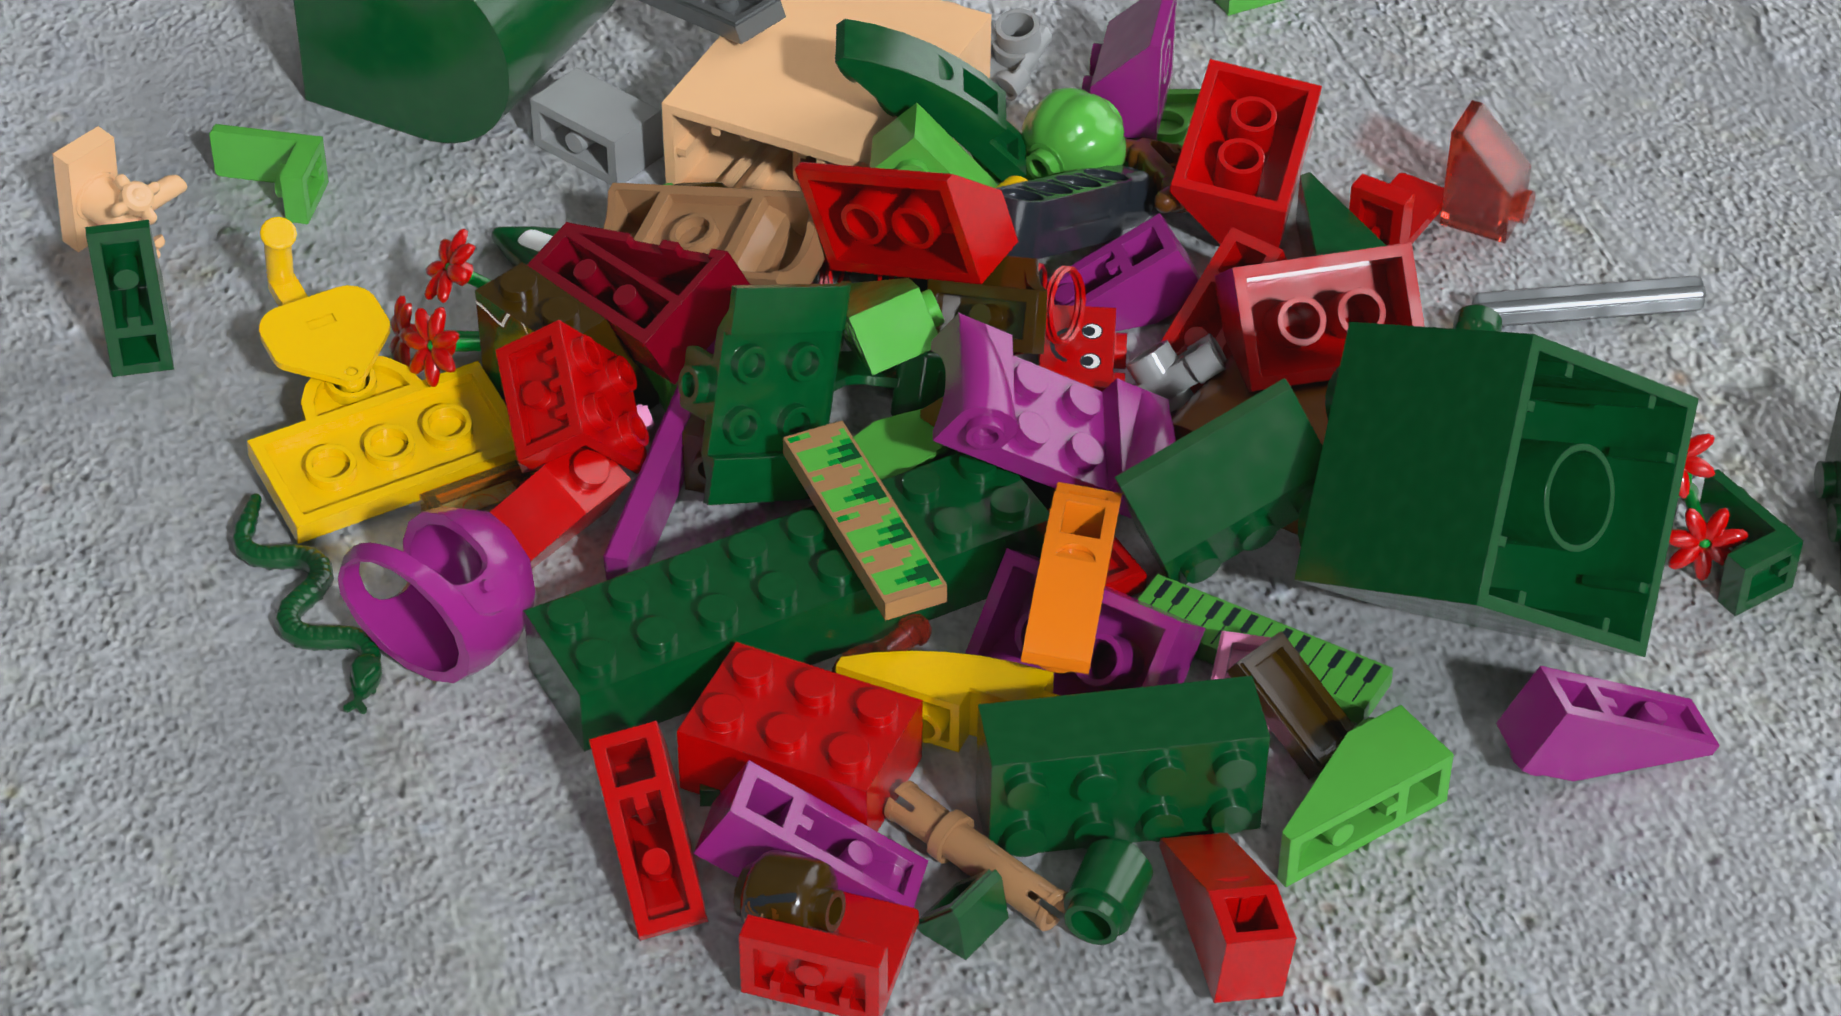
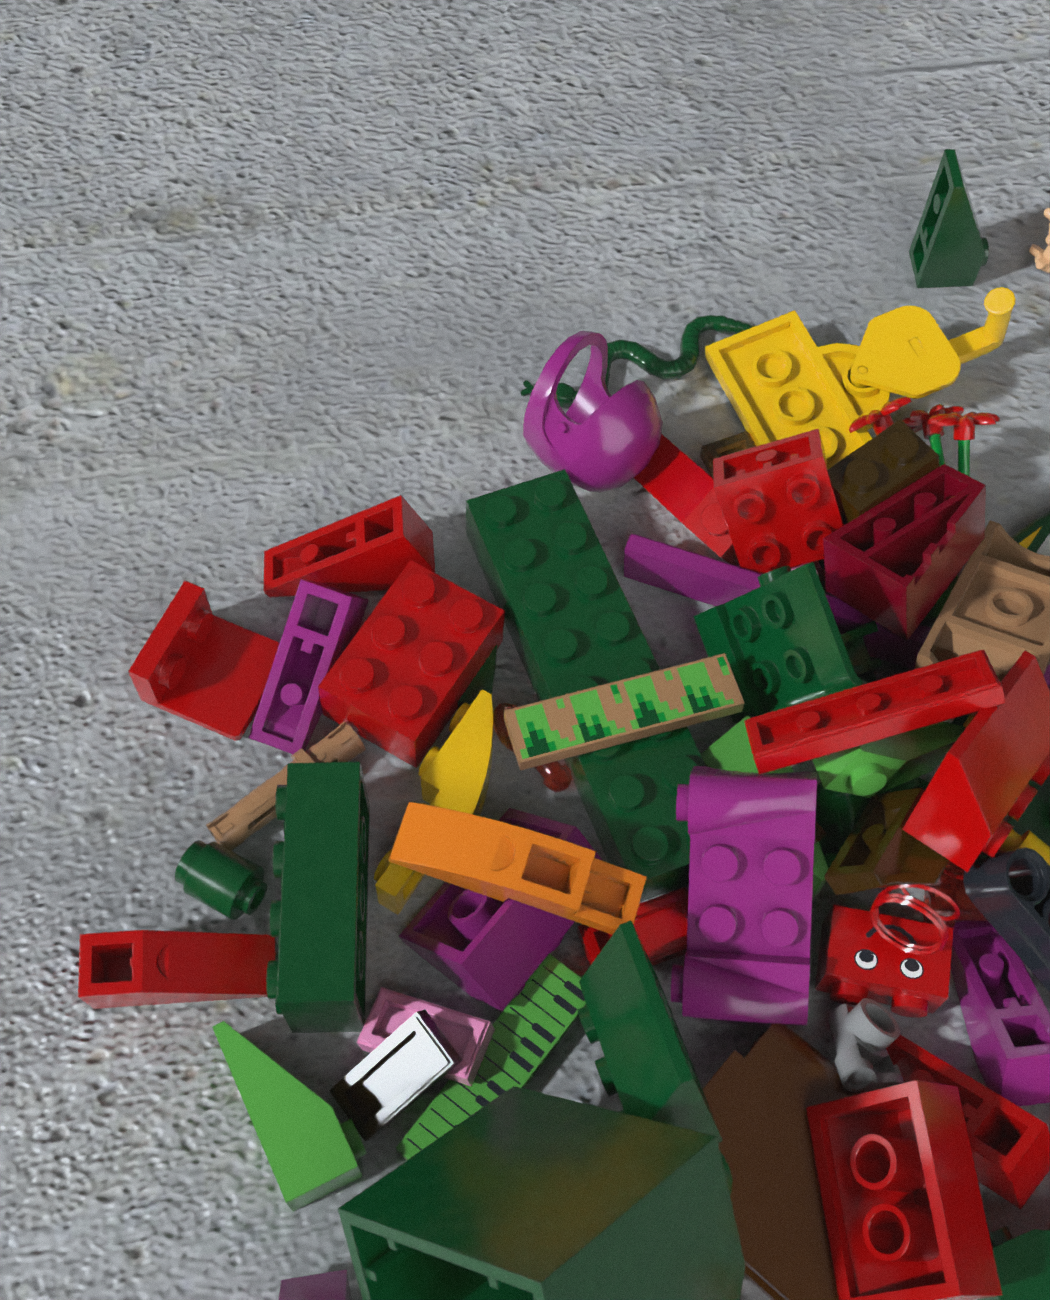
camera: 95 degrees right, 20 degrees up
(791, 891) = (239, 632): dark brown head -> none
(882, 271) = (874, 711): none -> red tile
(967, 914) = (232, 770): dark green slope -> none

